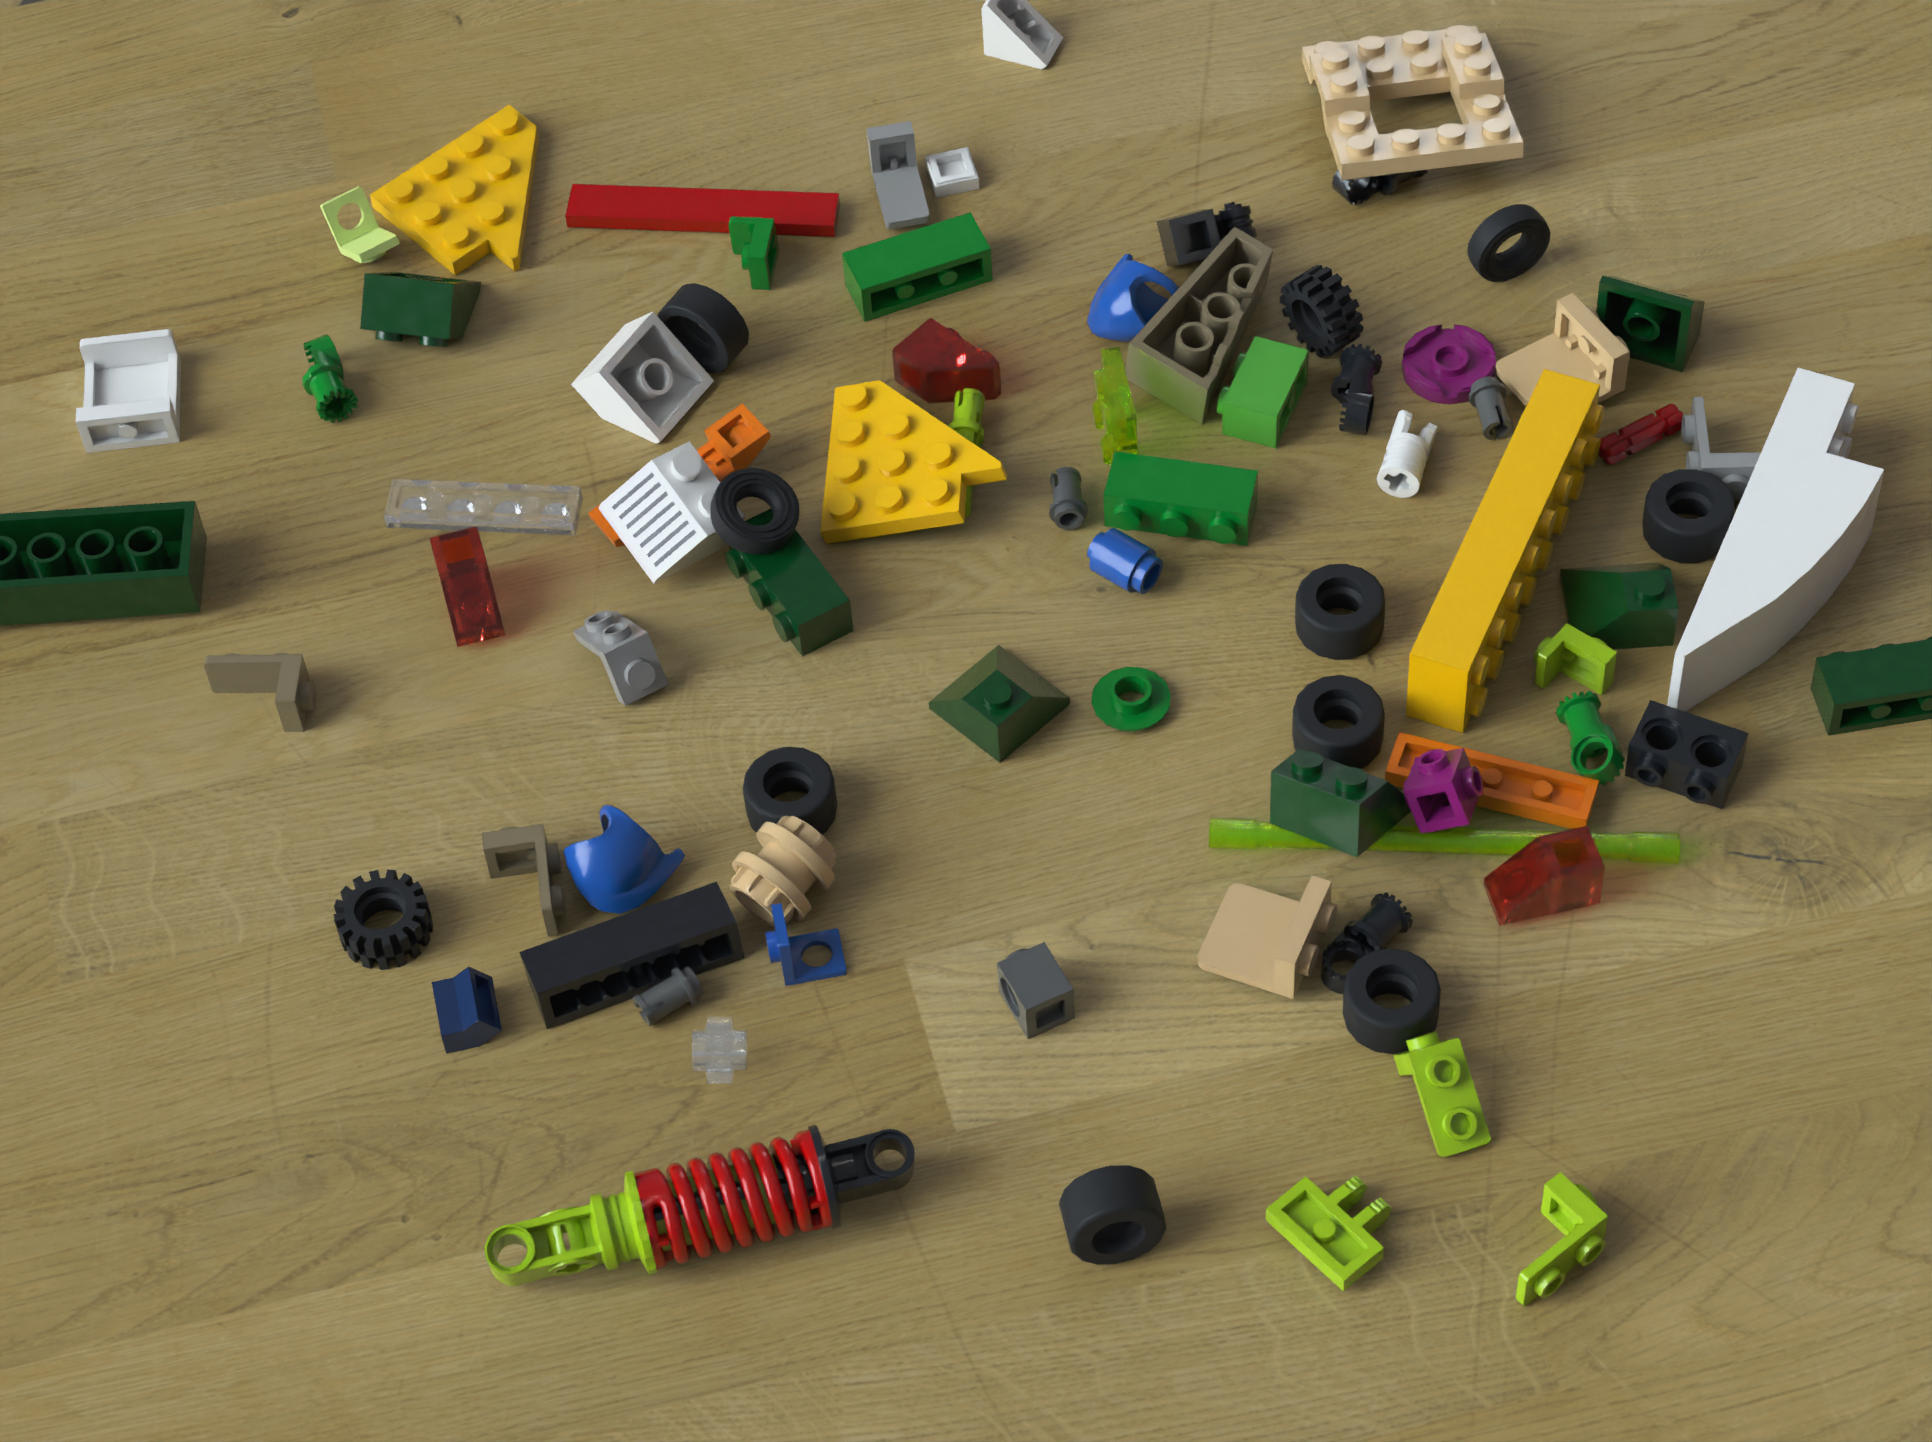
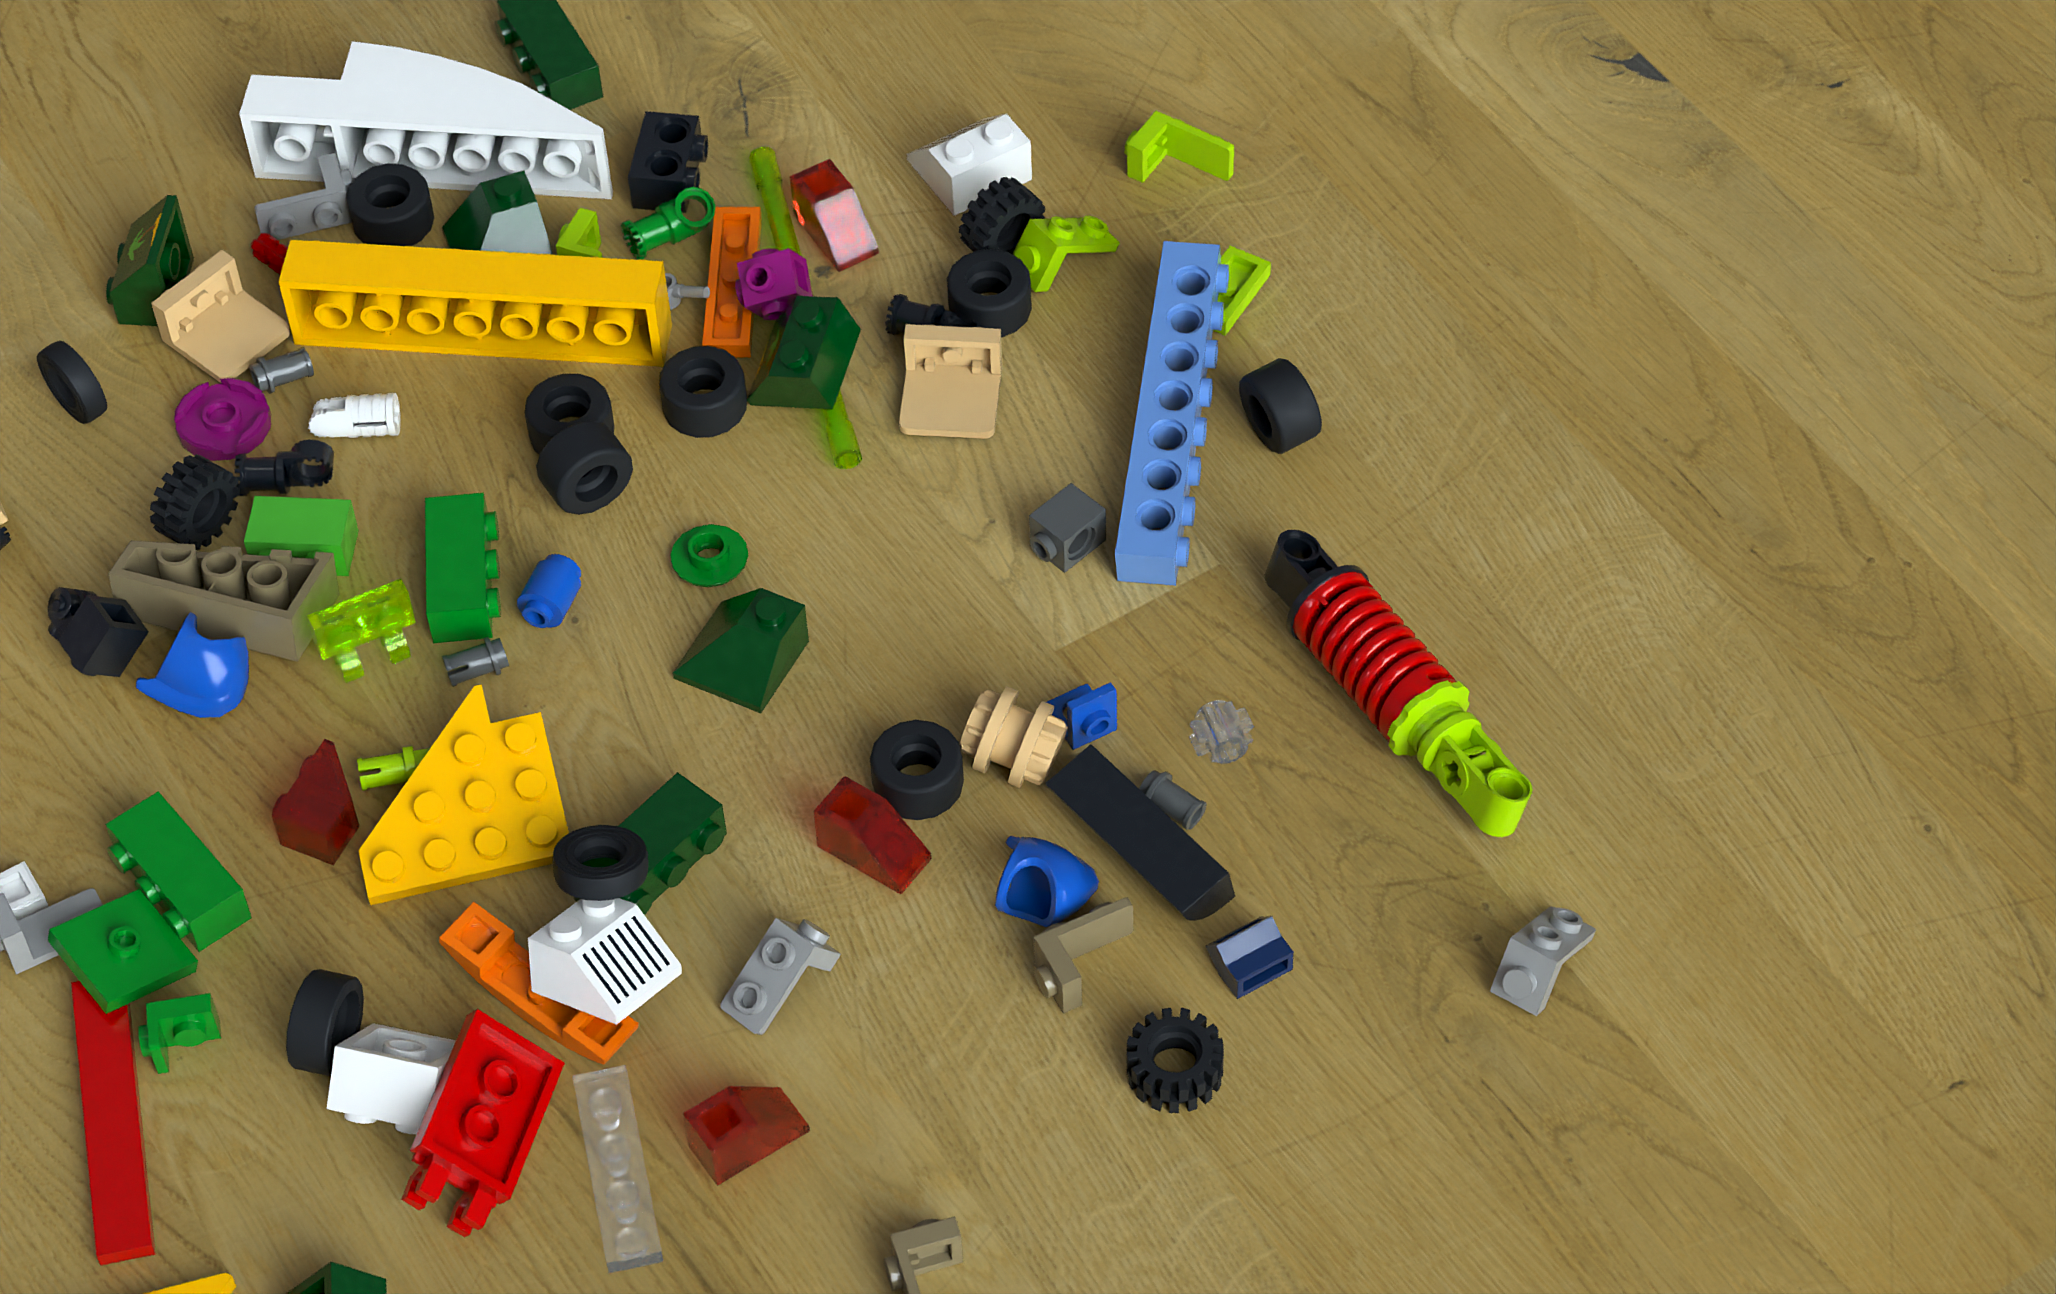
camera: 110 degrees left, 0 degrees up
(345, 1254) = (1537, 956): none -> light grey bracket
(564, 418) = (481, 1120): none -> red tile
(724, 736) = (869, 835): none -> clear red slope
(844, 216) = (122, 951): none -> green plate
(1174, 1105) = (1170, 414): none -> medium blue brick
(1255, 599) = (584, 467): none -> black tyre
(1482, 1022) = (999, 216): none -> black tyre
(1493, 732) = (678, 291): none -> light grey hand
(1609, 1035) = (973, 158): none -> white slope

